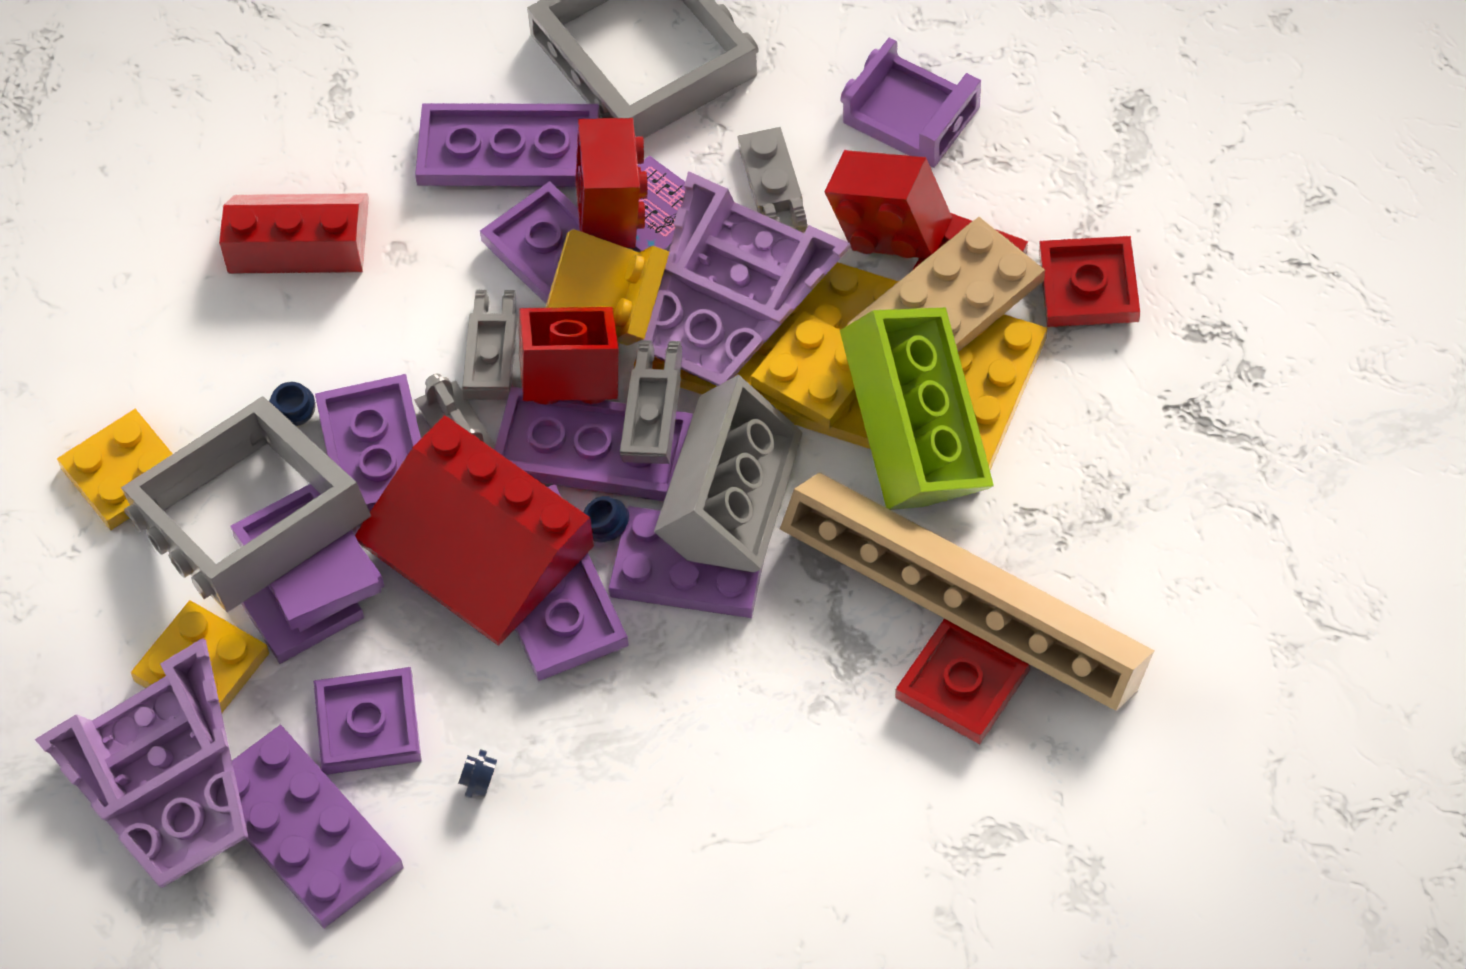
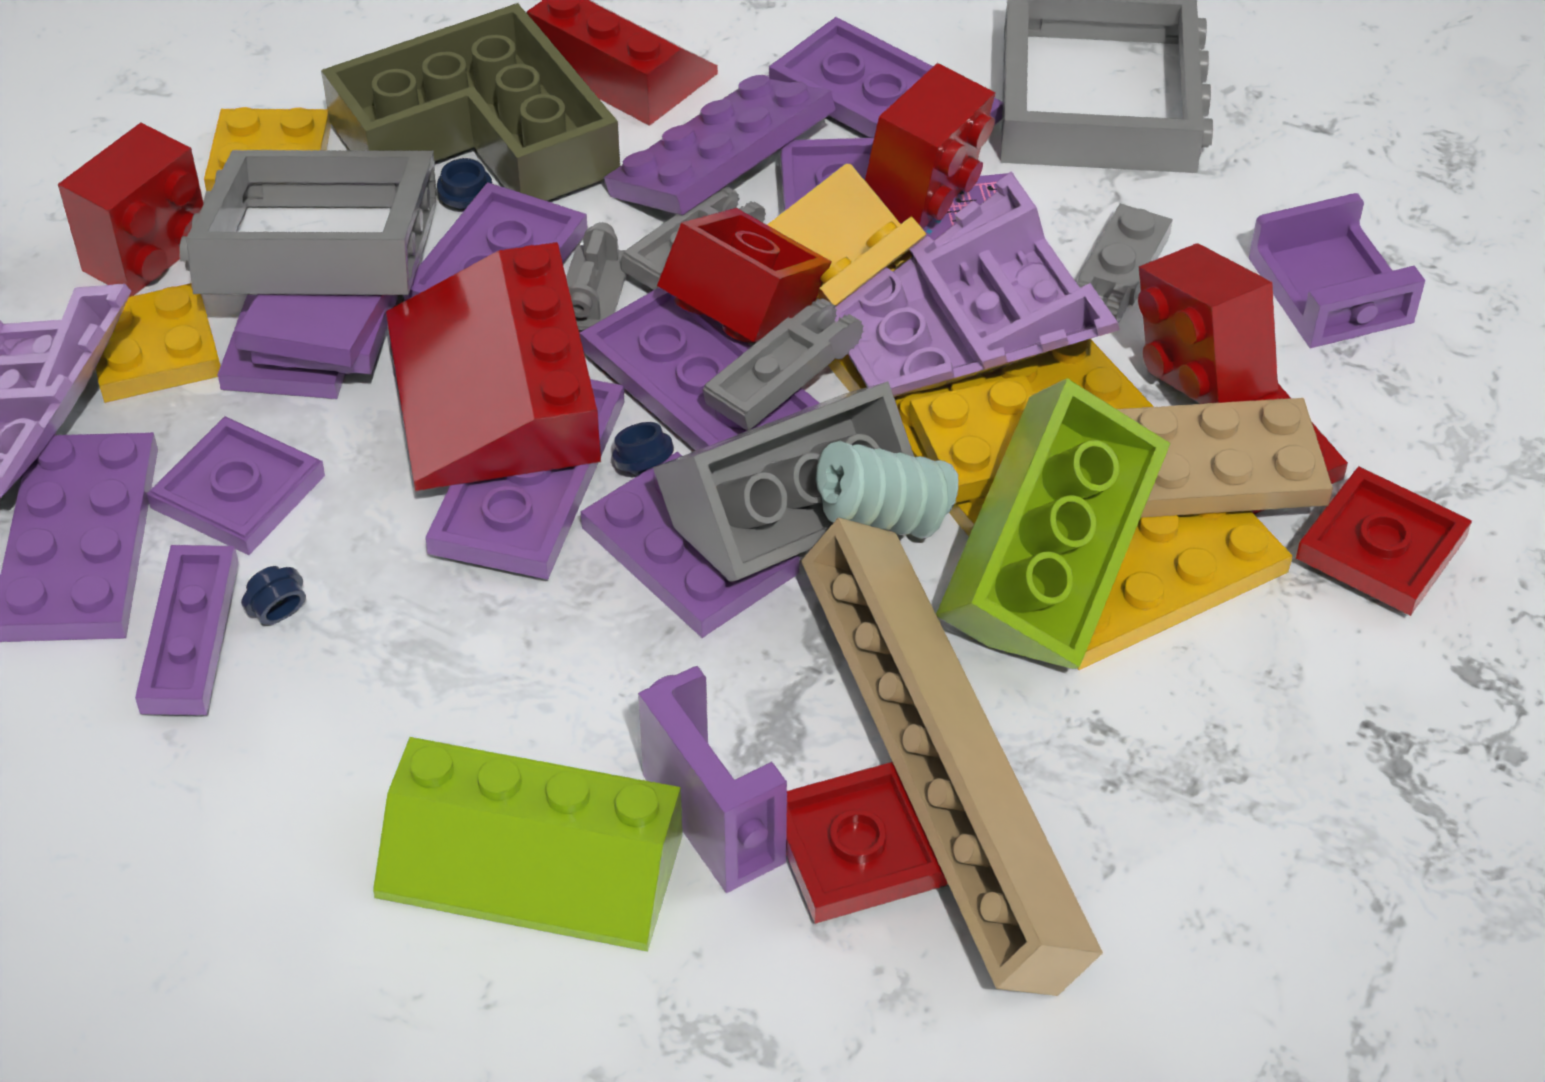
camera: 35 degrees right, 10 degrees down
(108, 577) = (132, 207): none -> red brick
(250, 318) = (481, 87): none -> olive brick
(440, 259) = (719, 144): none -> medium lavender plate
(447, 833) = (187, 630): none -> medium lavender plate
(787, 814) = (528, 843): none -> lime slope
(796, 448) = (885, 488): none -> light aqua piece
(860, 711) = (729, 822): none -> medium lavender panel

